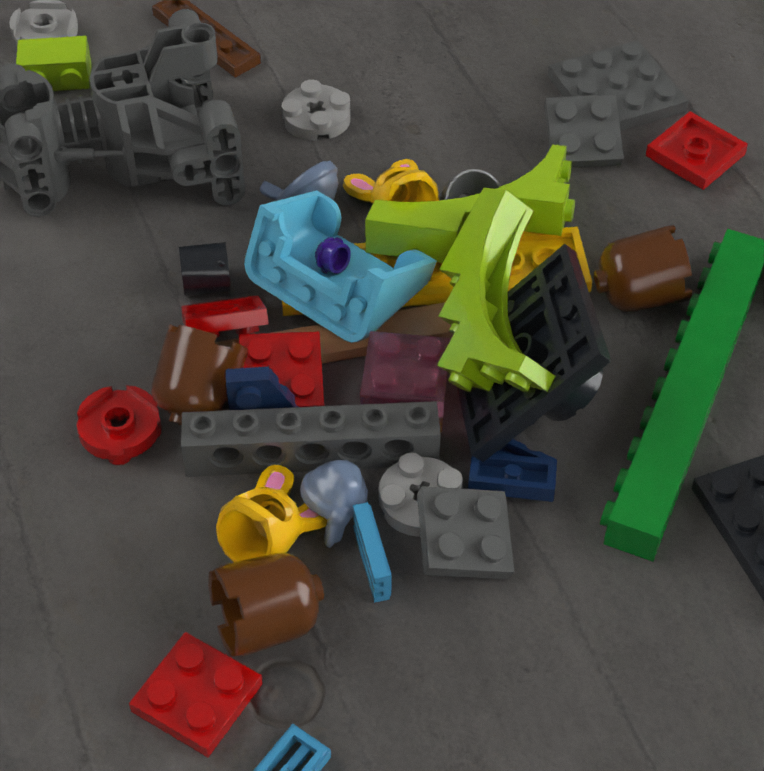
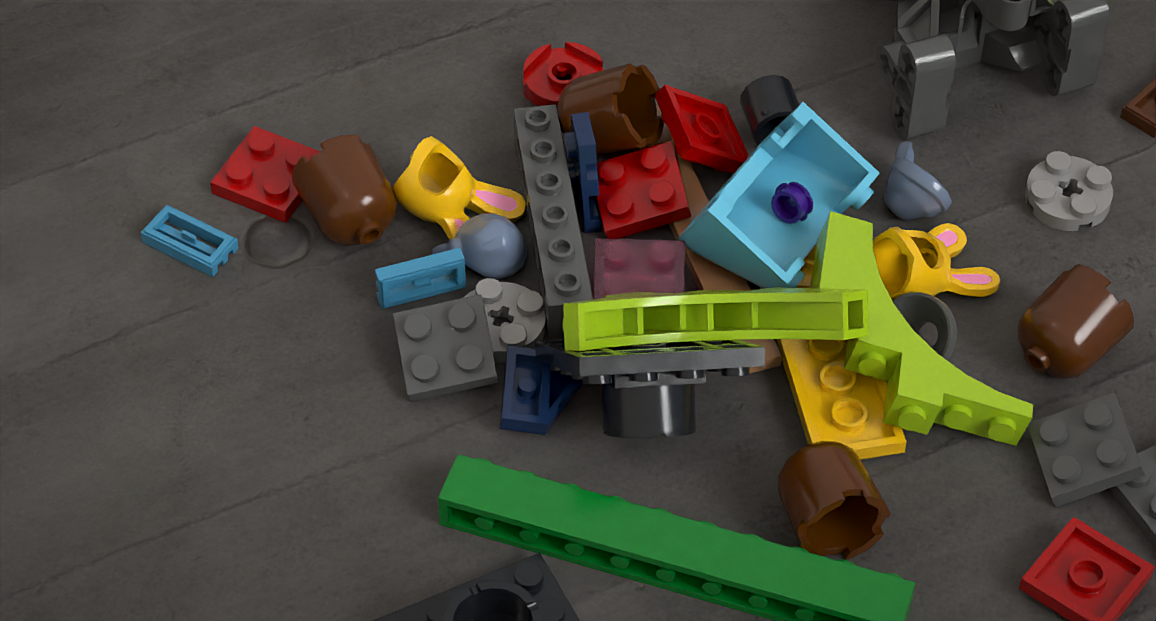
camera: 85 degrees right, 0 degrees up
(471, 114) = (1073, 324): none -> reddish brown cylinder

